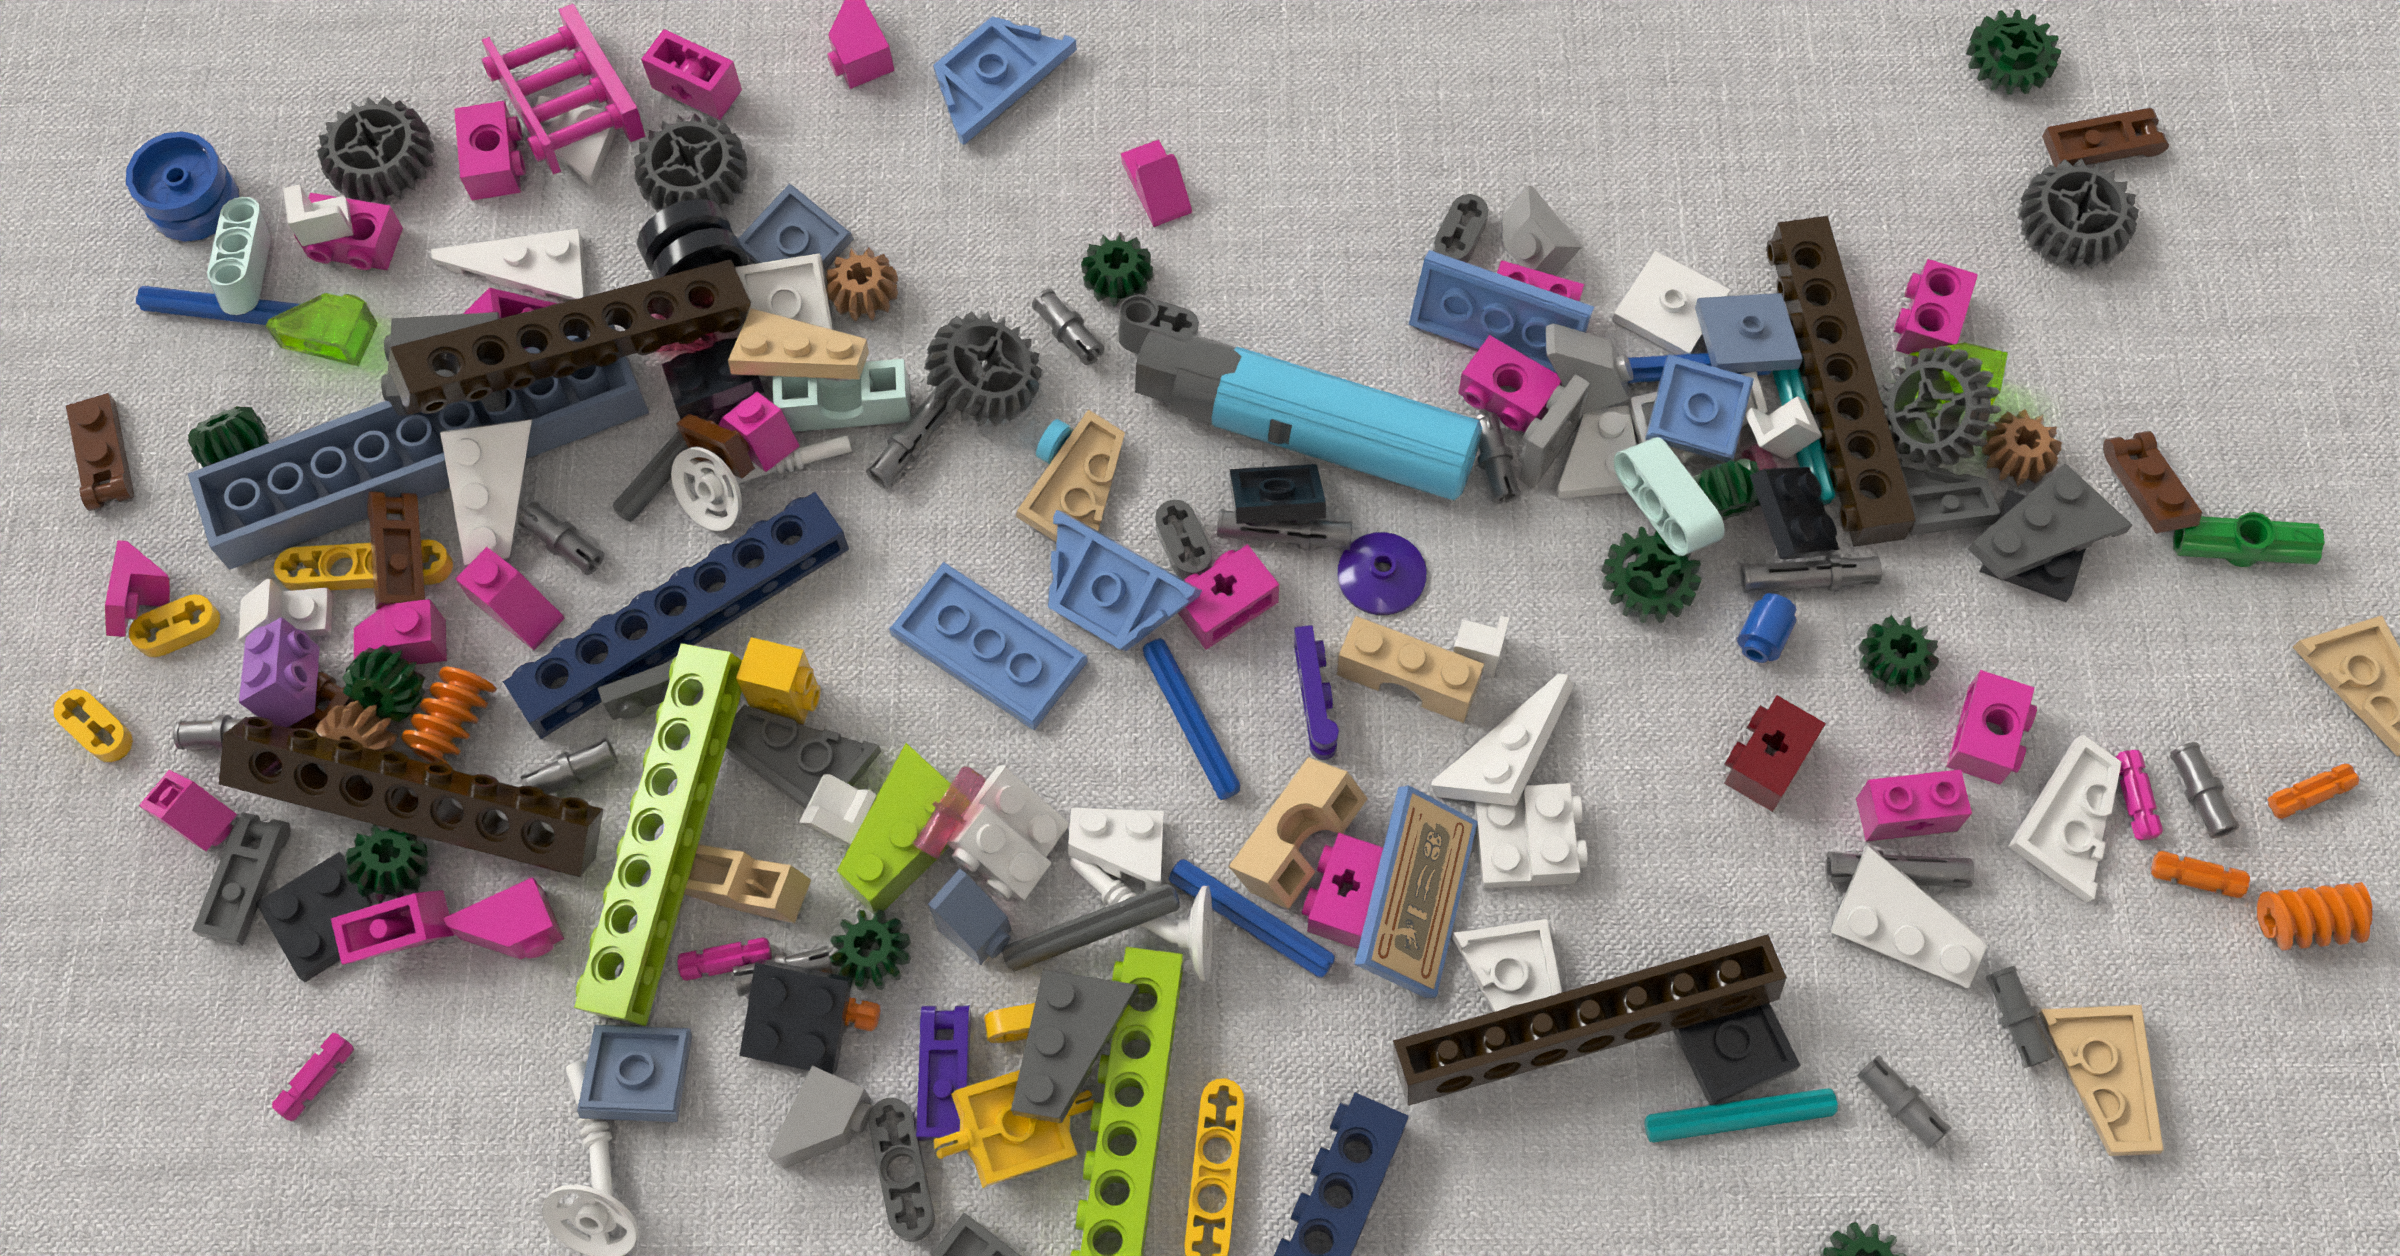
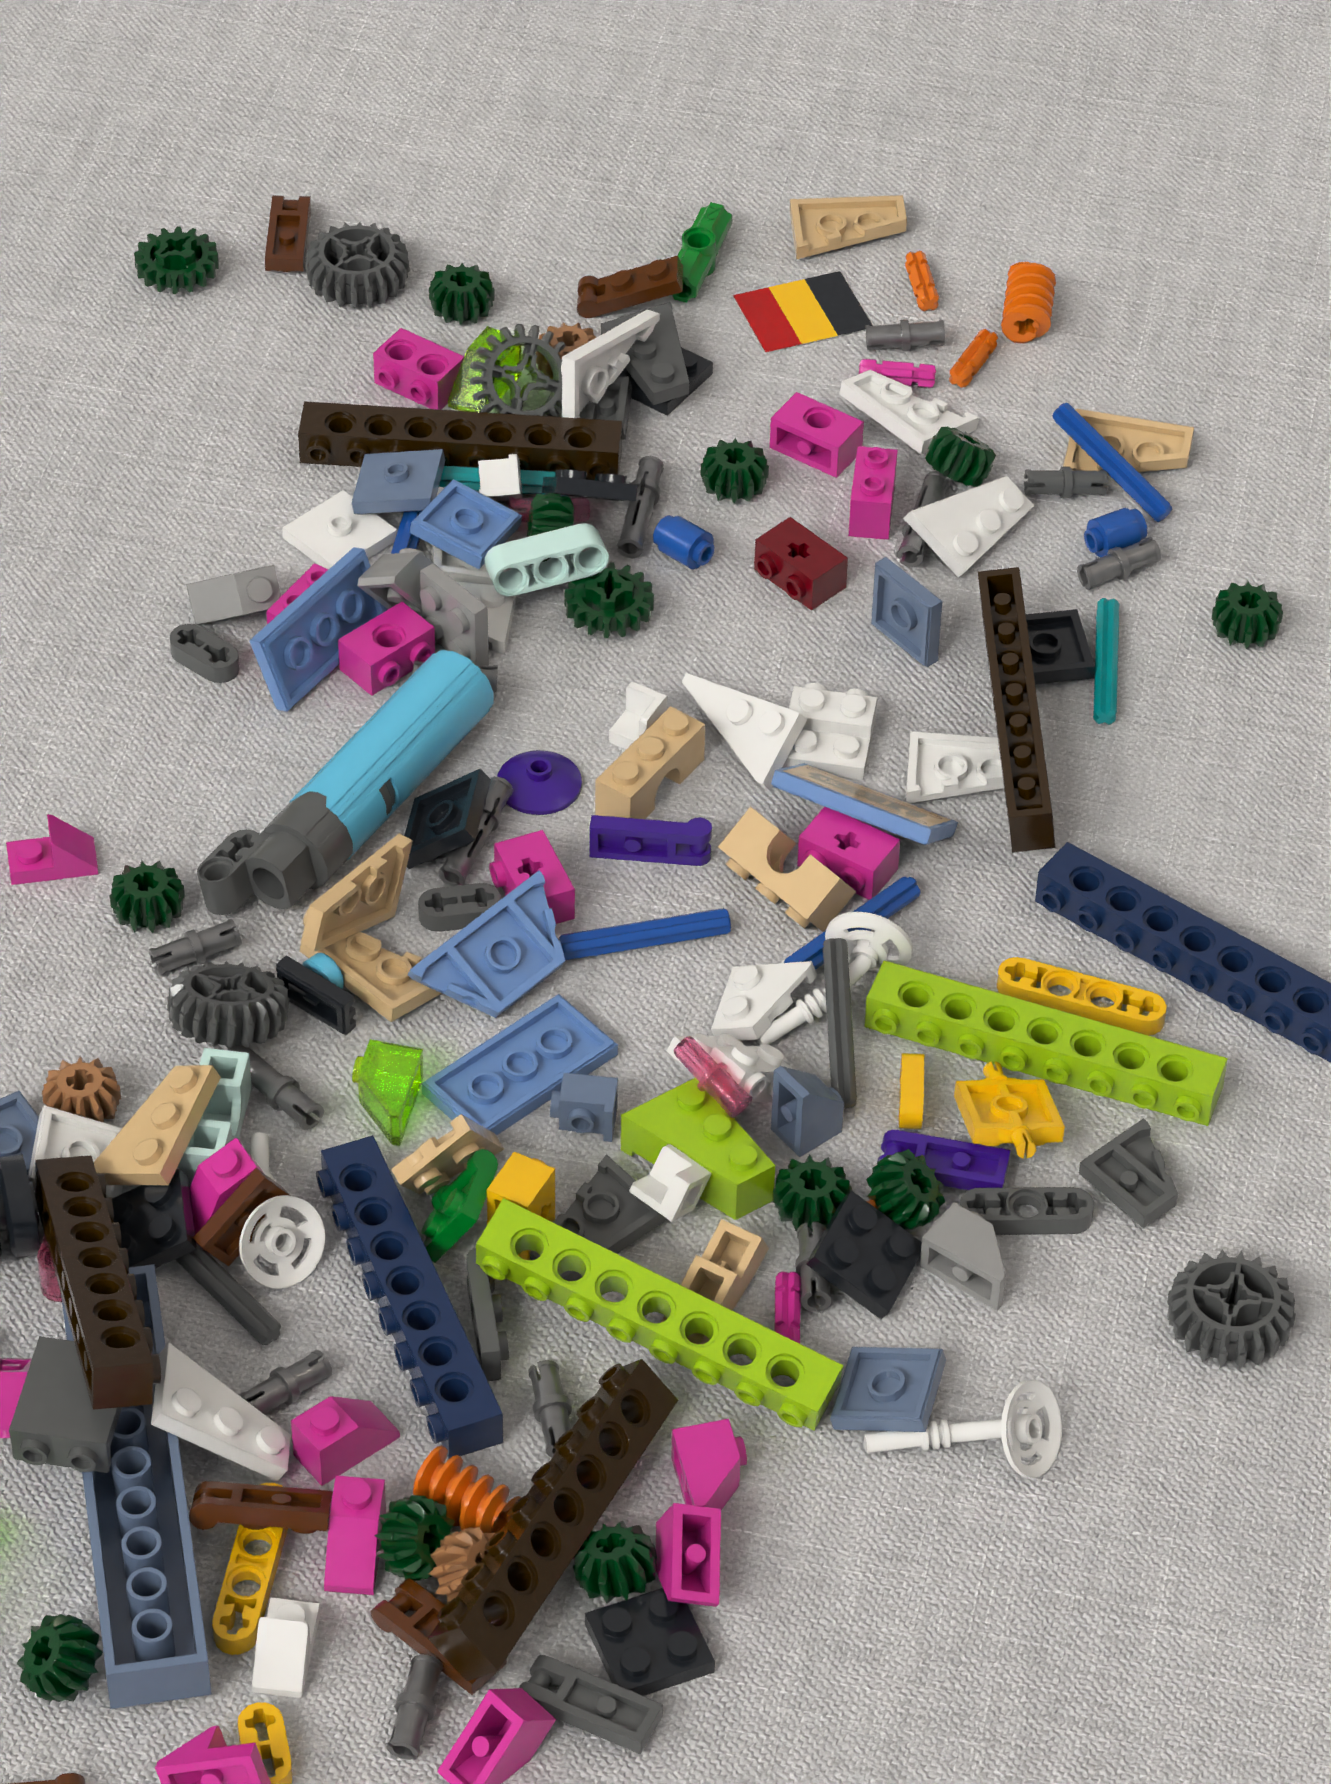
camera: 80 degrees left, 20 degrees down
(279, 673) = (375, 1620): medium lavender brick -> none
(312, 1077) = (823, 1661): dark pink axle -> none
(761, 623) = (458, 1204): none -> green plate
(817, 598) = (443, 1158): none -> tan wing
(878, 1054) = (906, 1189): none -> dark green gear
(924, 534) = (389, 1085): none -> clear neon green slope
(940, 715) = (586, 1104): none -> sand blue brick
(1025, 441) = (317, 995): none -> black tile
(1065, 1037) = (946, 1047): dark grey wing -> none
(1133, 442) = (360, 898): none -> tan wing
(1717, 876) = (906, 612): none -> sand blue plate
(1951, 1088) = (1114, 530): none -> blue brick
(1987, 475) = (600, 361): none -> white wing
(2003, 888) = (960, 456): none -> dark green gear
(2063, 1062) = (1112, 462): none -> blue axle
(2074, 322) = (461, 293): none -> dark green gear
(2210, 675) = (802, 311): none -> sticker

